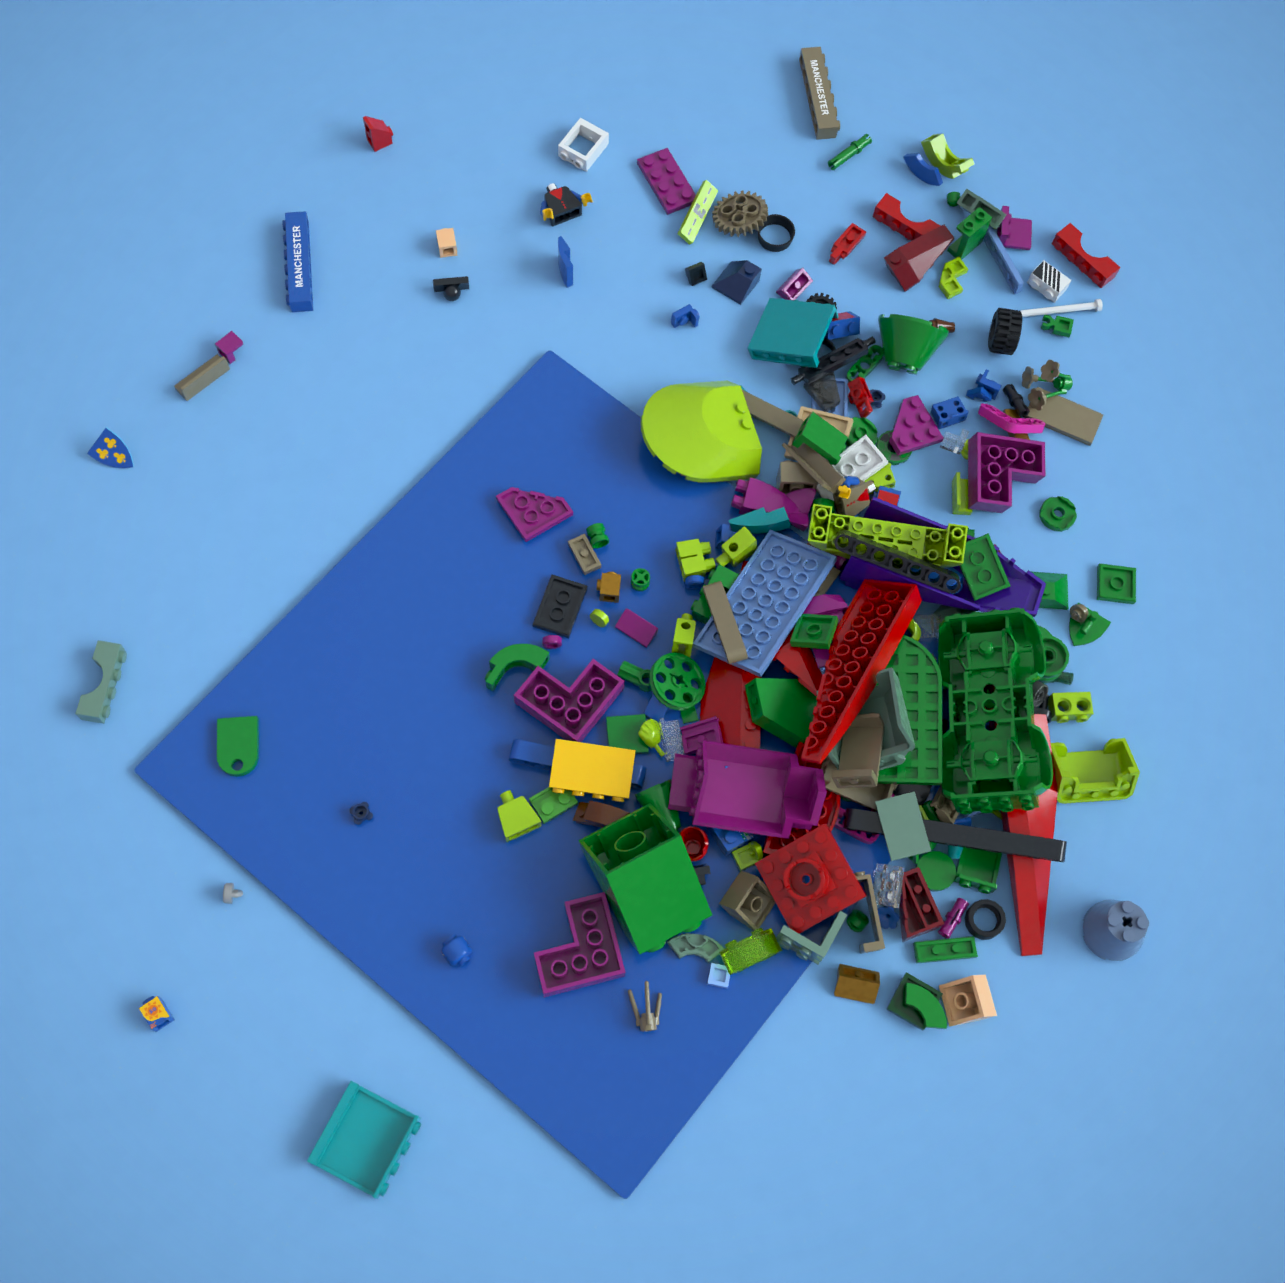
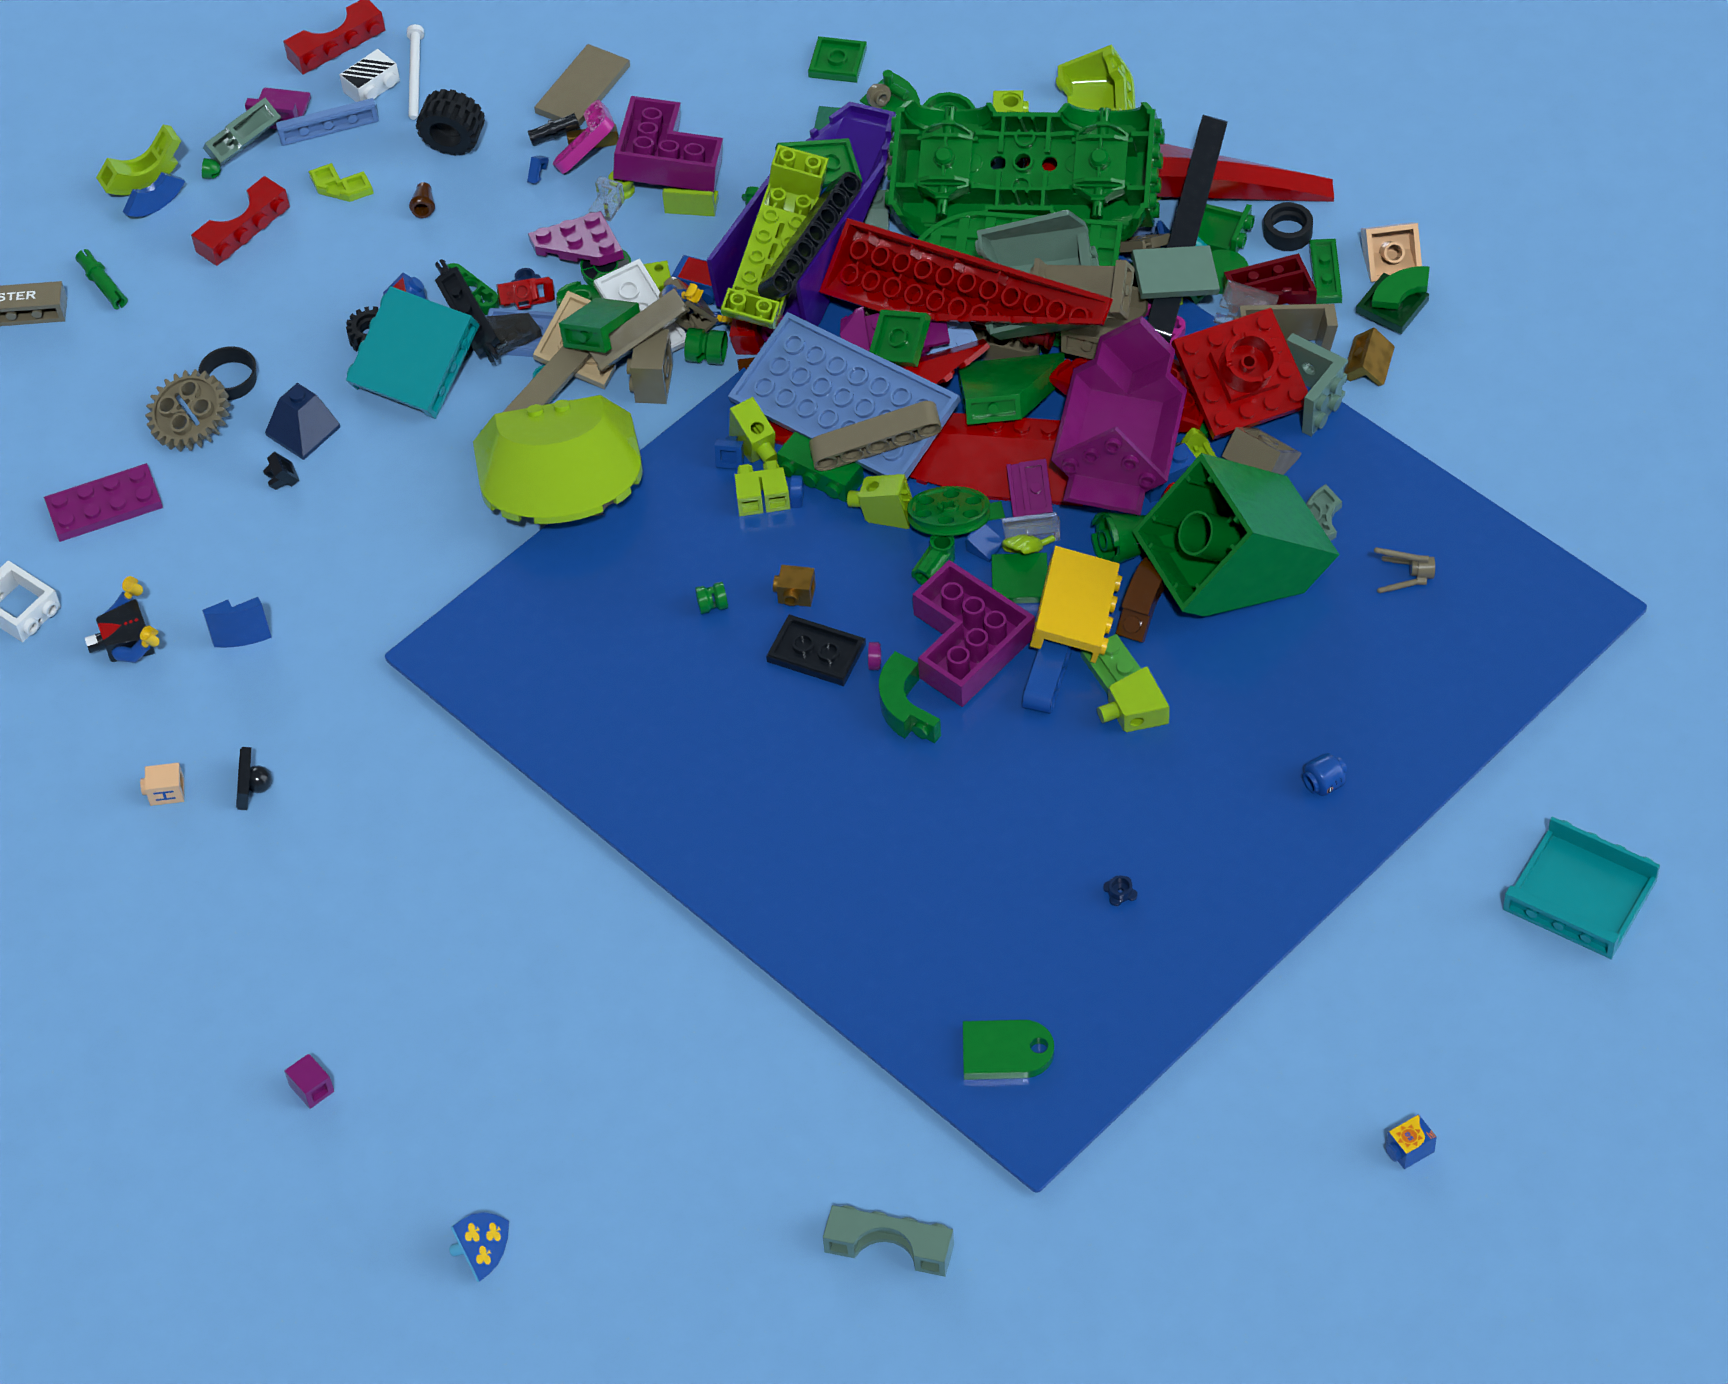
camera: 75 degrees left, 15 degrees down
(202, 377) = (356, 1123): dark tan panel -> none
(230, 893) = (1234, 1055): light grey tile -> none
(298, 261) = (160, 987): blue brick -> none
(533, 511) = (661, 676): magenta plate -> none
(584, 554) = (738, 615): dark tan plate -> none
(592, 955) = (1329, 616): magenta brick -> none
(599, 617) = (841, 600): lime tile -> none
(636, 627) = (859, 560): magenta slope -> none
(640, 575) = (790, 547): green wheel -> none
(684, 315) = (354, 485): blue bracket -> none
(697, 212) = (171, 464): tile -> none
(718, 976) = (1360, 493): light blue tile -> none
(750, 951) = (1330, 452): clear neon green brick -> none
(760, 494) = (678, 403): magenta hips -> none
(761, 522) = (715, 402): teal slope -> none
(794, 285) = (319, 361): magenta slope -> none
(846, 243) = (261, 293): red hinge -> none
(909, 341) = (455, 223): green cone -> none
(916, 257) = (310, 213): dark red wedge -> none
(947, 928) = (1276, 251): magenta pin -> none
(949, 412) = (561, 200): blue piece -> none
(973, 232) = (289, 154): green panel -> none
(990, 385) = (520, 160): blue bracket -> none
(1049, 372) = (531, 77): dark tan plant -> none
(1054, 522) = (728, 117): green tile -> none
(1060, 325) = (441, 73): green plate -> none
(1108, 936) = (1303, 98): sand blue cone -> none

